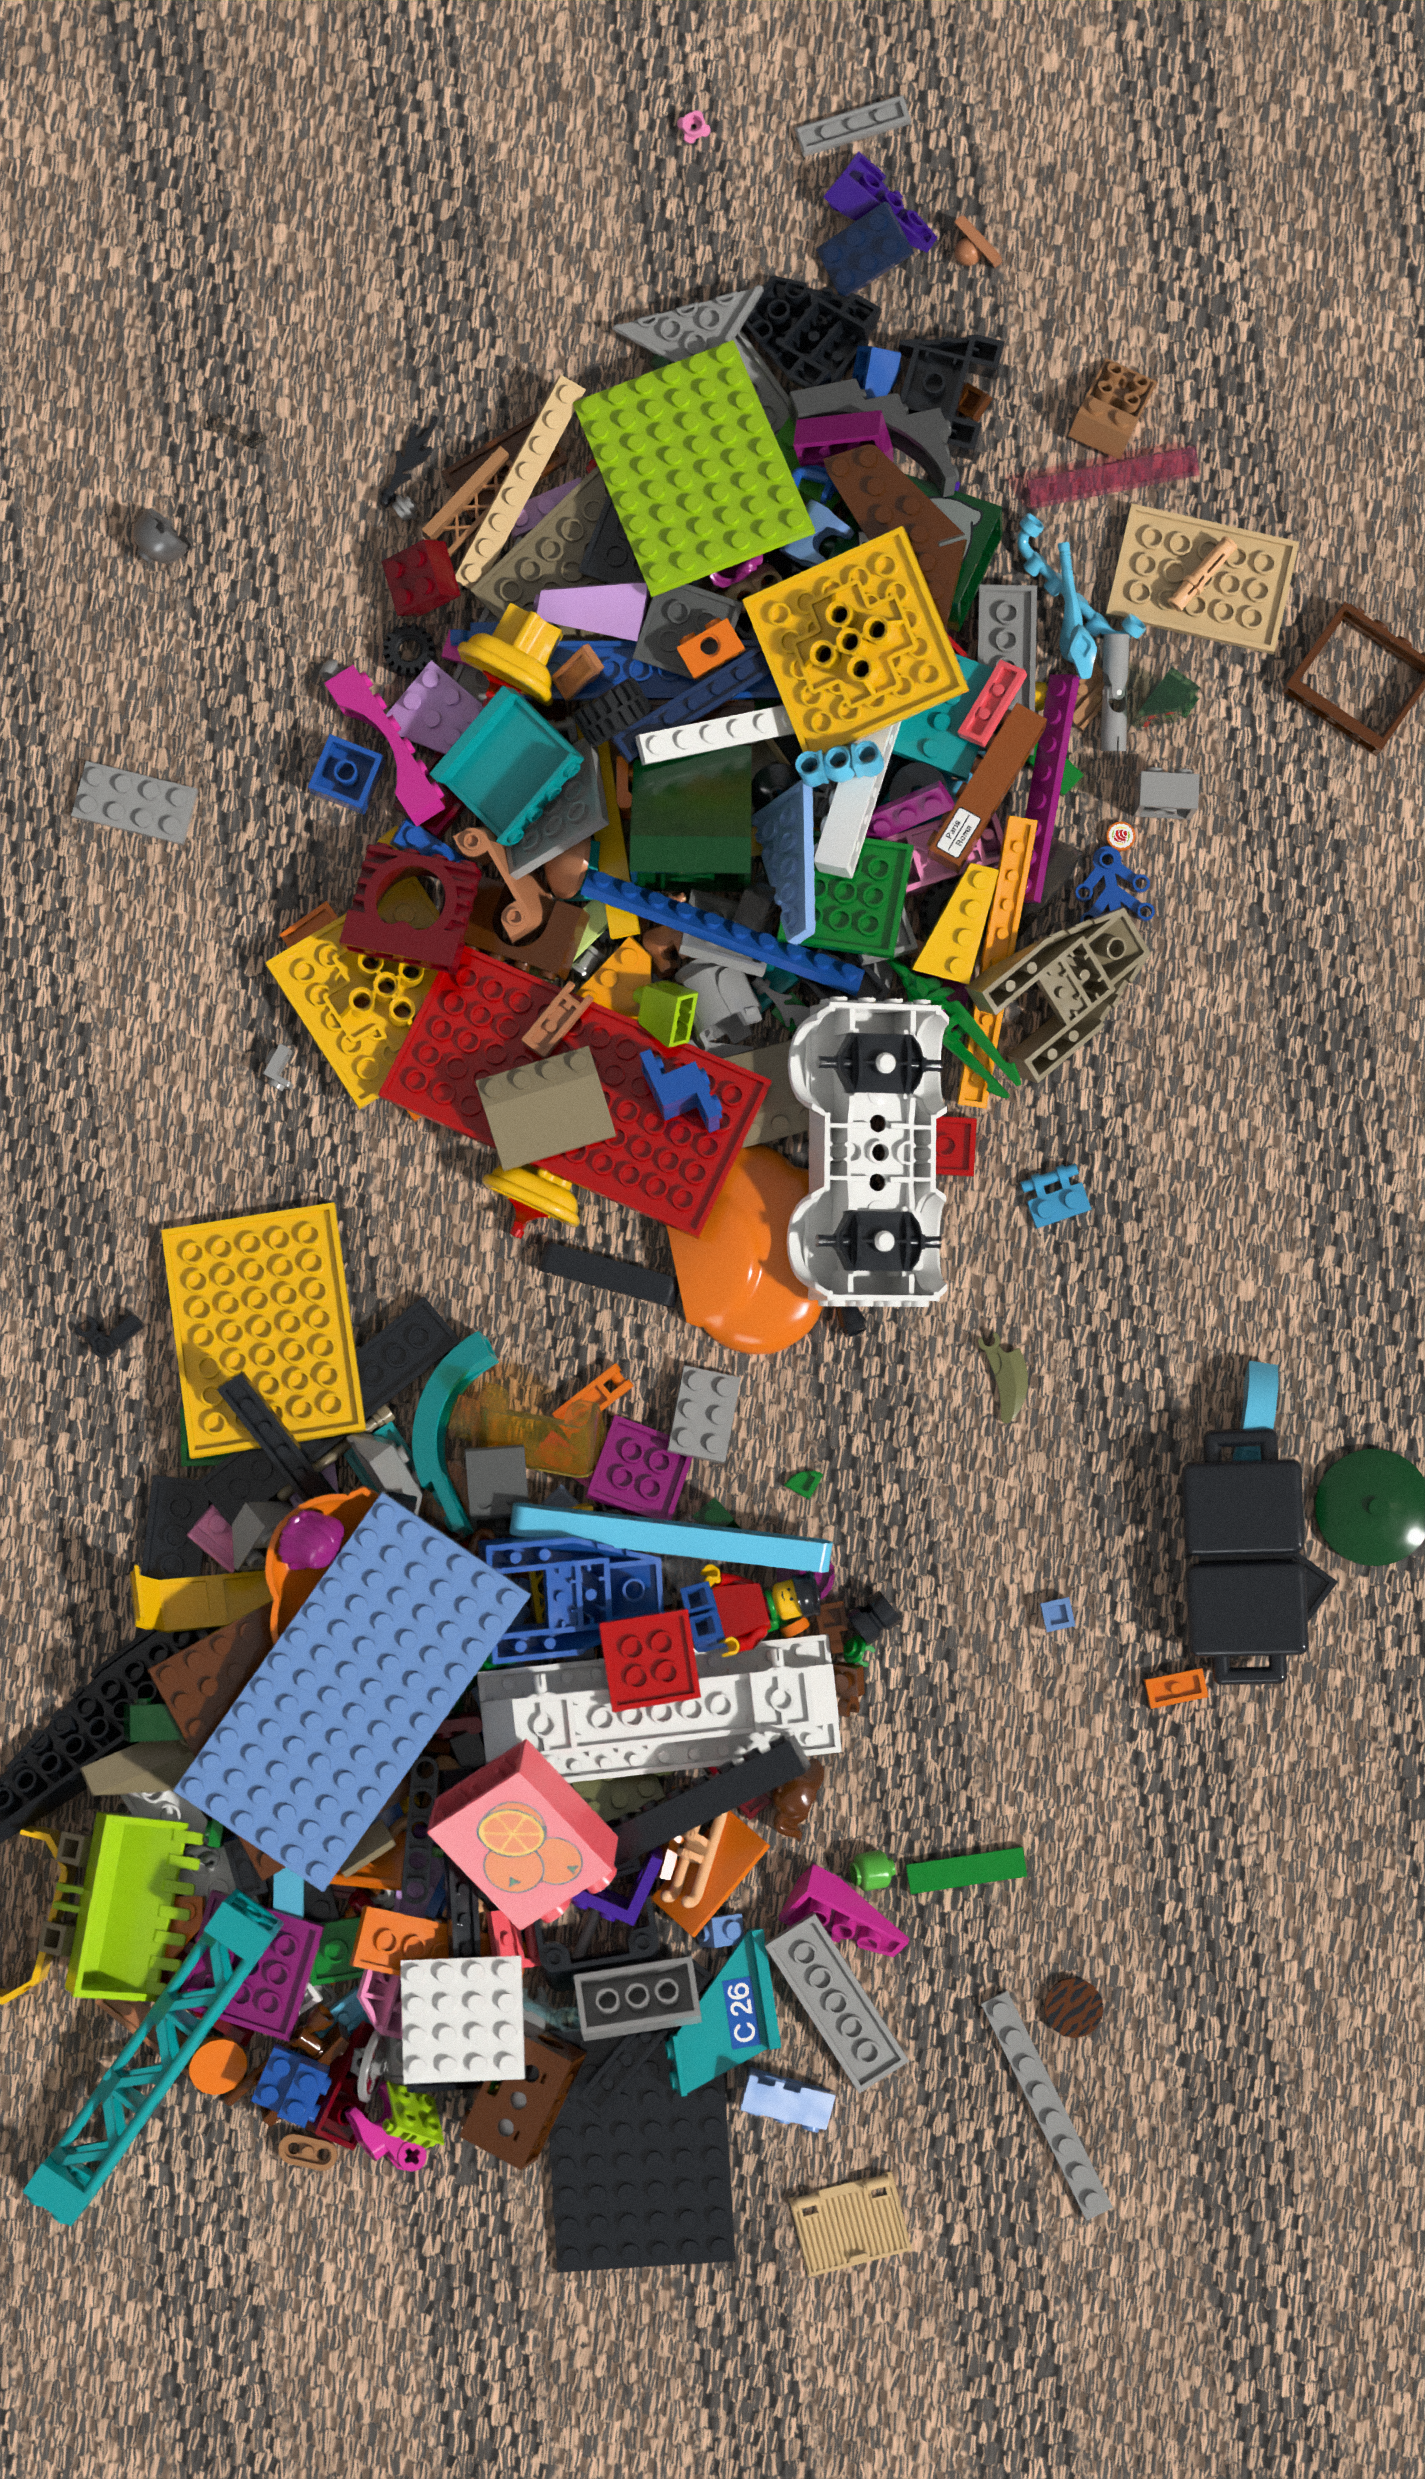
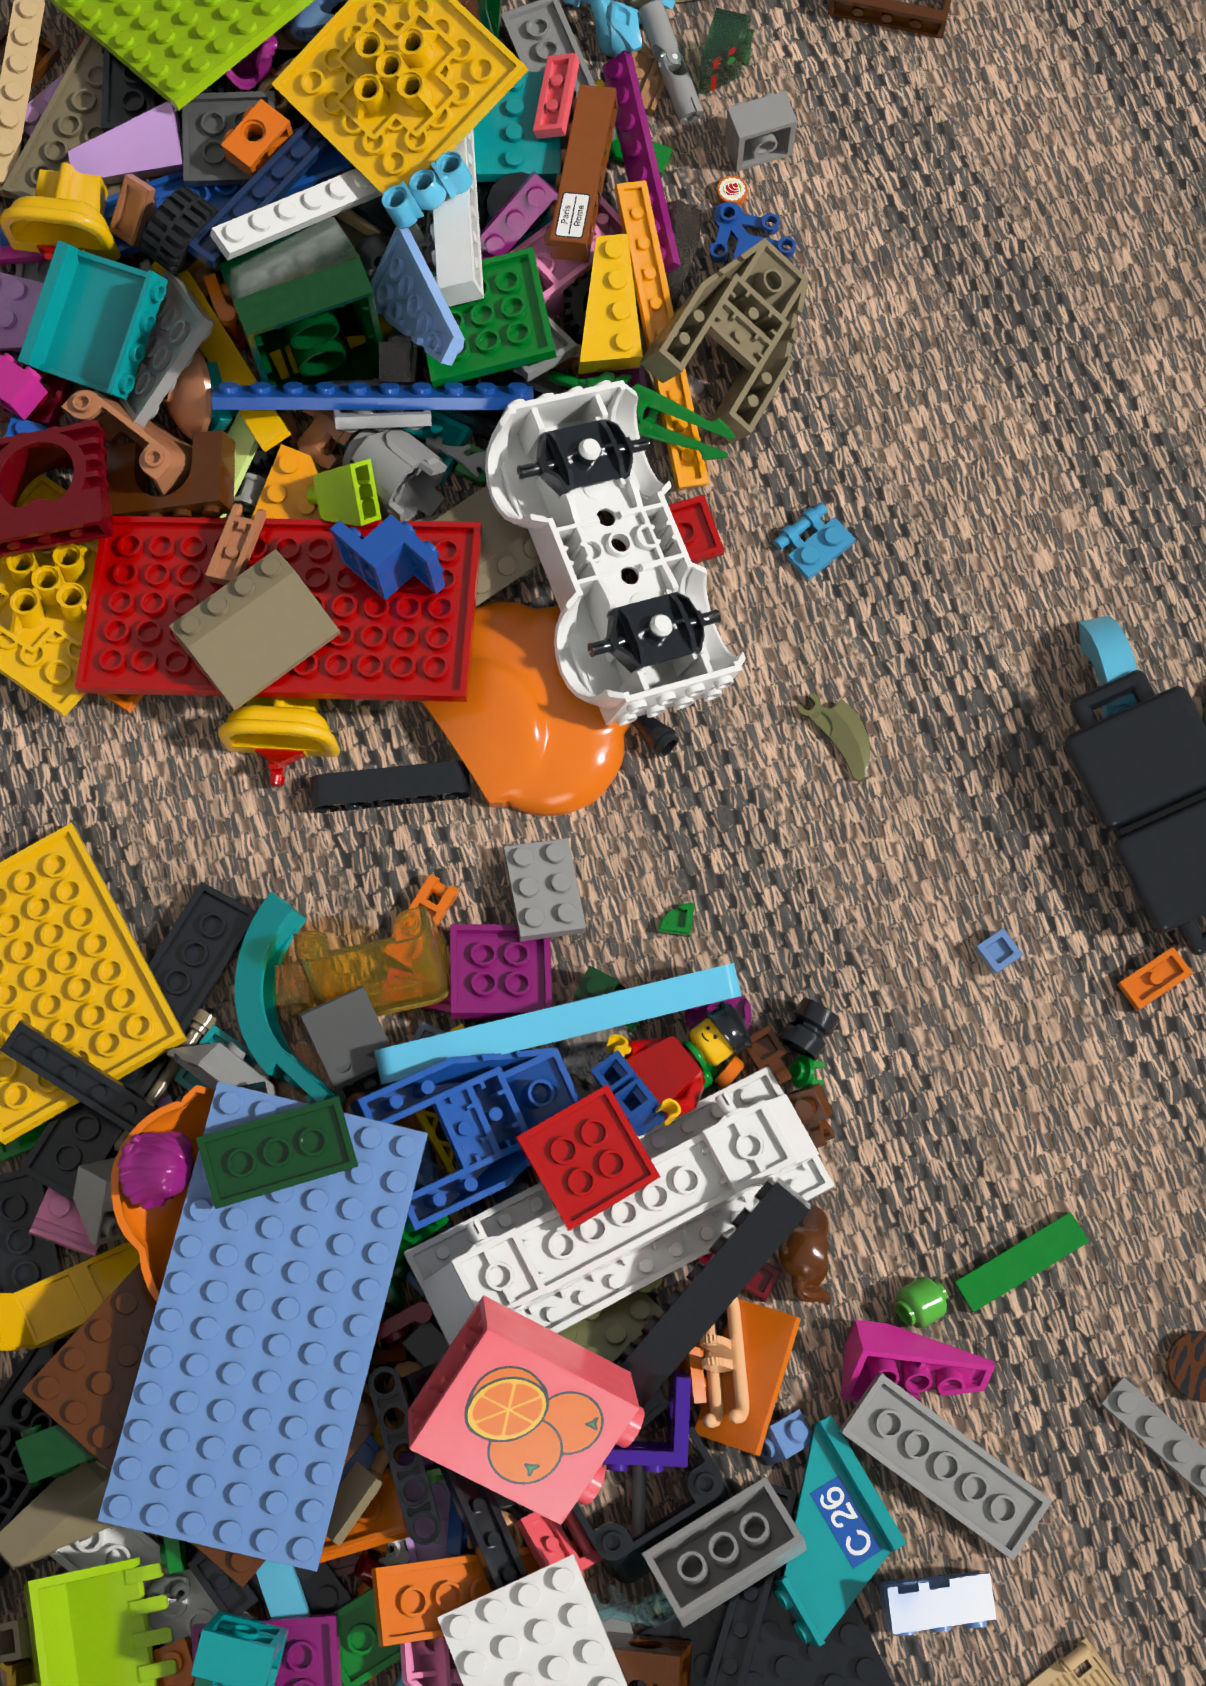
camera: 20 degrees left, 10 degrees down
(408, 1568) = (277, 1152): none -> dark green plate

